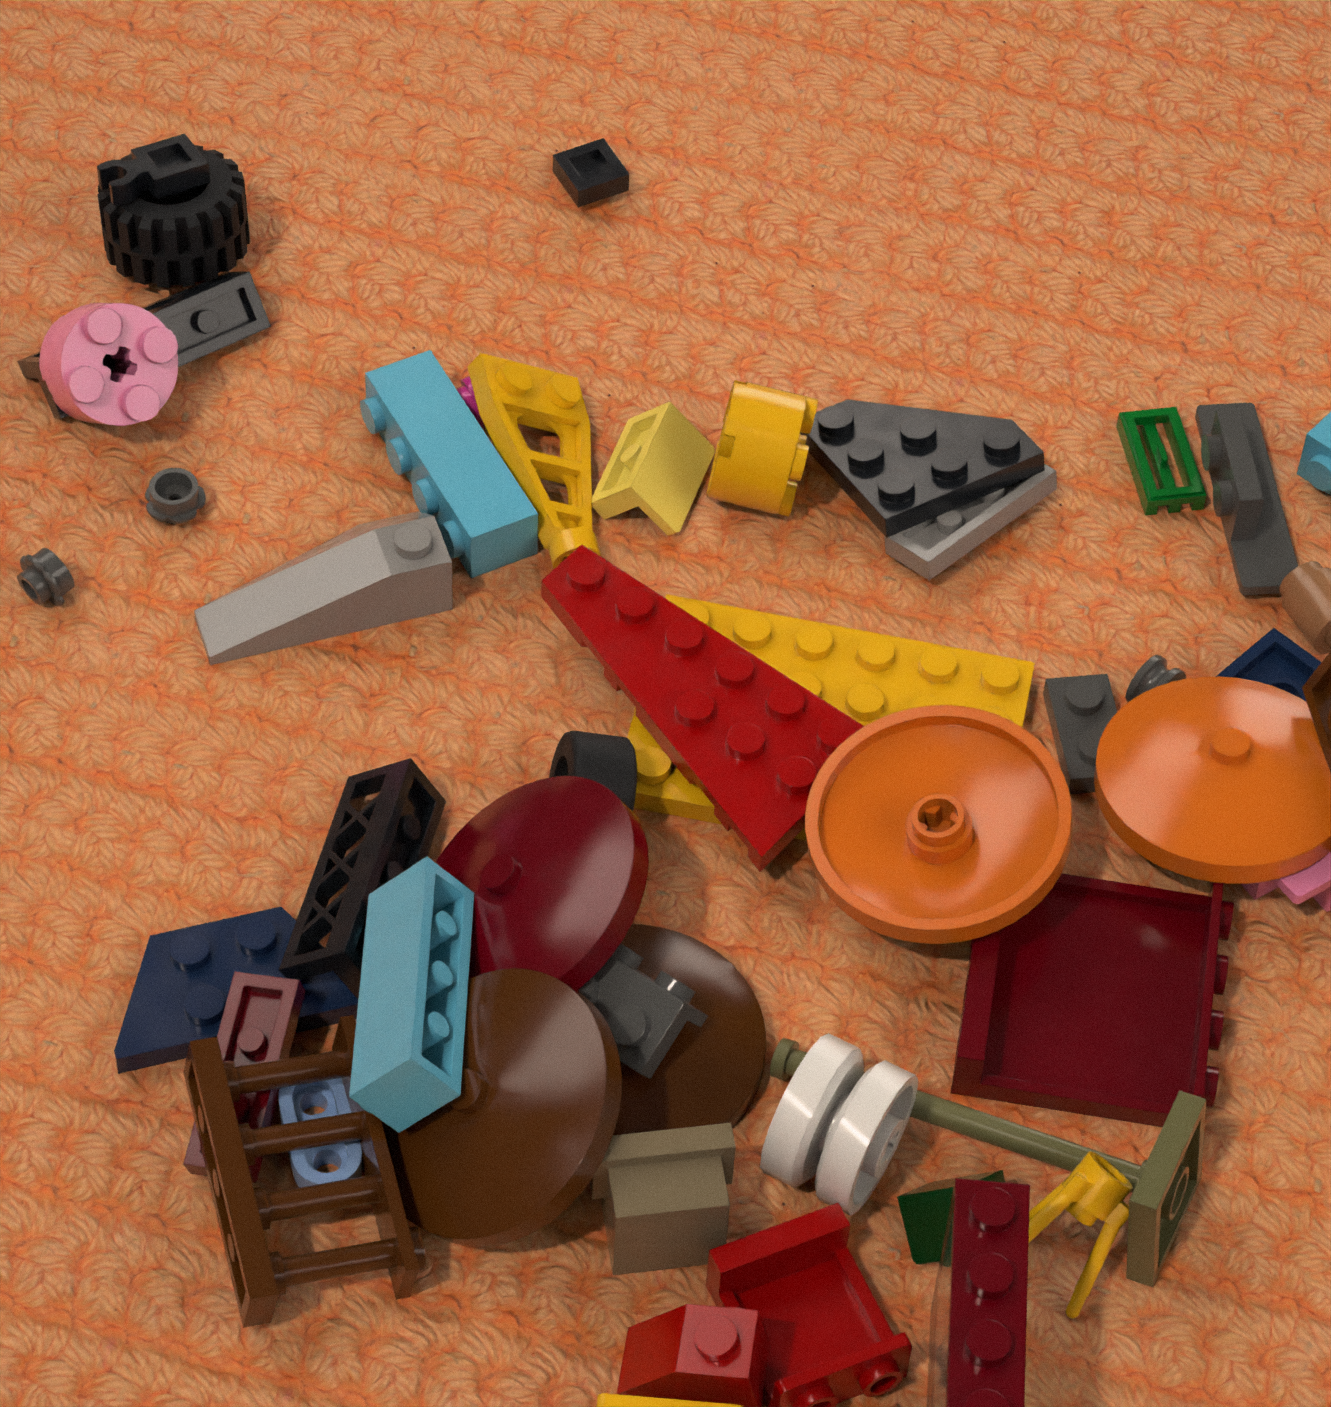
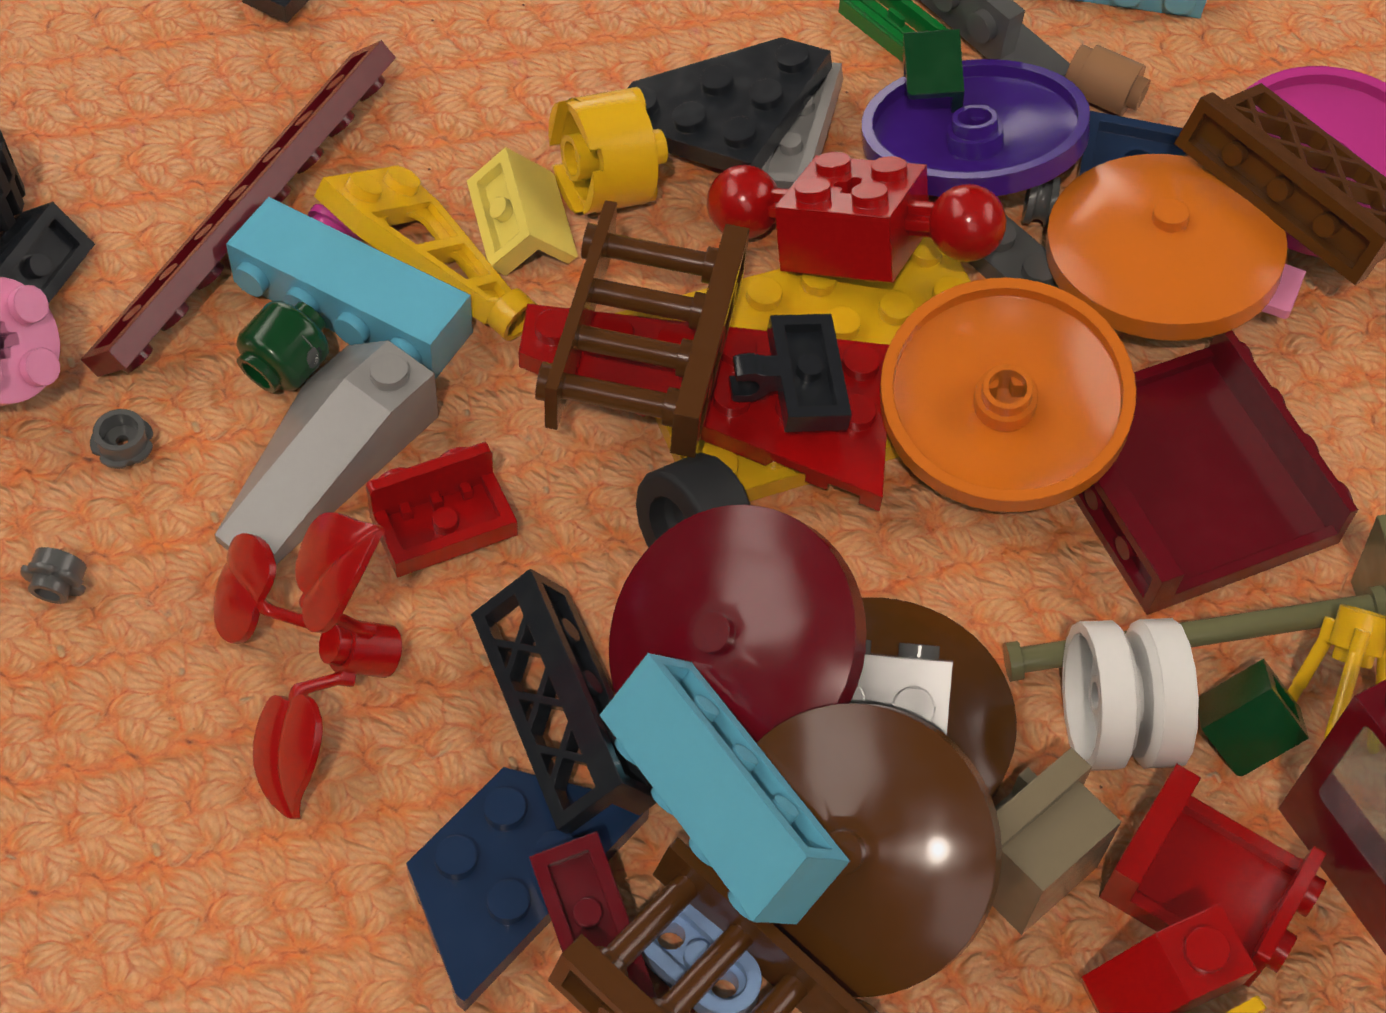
camera: 35 degrees left, 5 degrees up
(225, 743) = (327, 573): none -> red plant
(356, 483) = (282, 346): none -> dark green head
(384, 678) = (440, 508): none -> red bracket
(446, 341) = (198, 259): none -> dark red plate
(669, 656) = (693, 359): none -> reddish brown fence
(757, 714) = (802, 370): none -> black plate
(938, 608) = (857, 215): none -> red brick
(1135, 588) = (1009, 136): none -> dark purple dish
(1137, 514) = (934, 66): none -> dark green panel

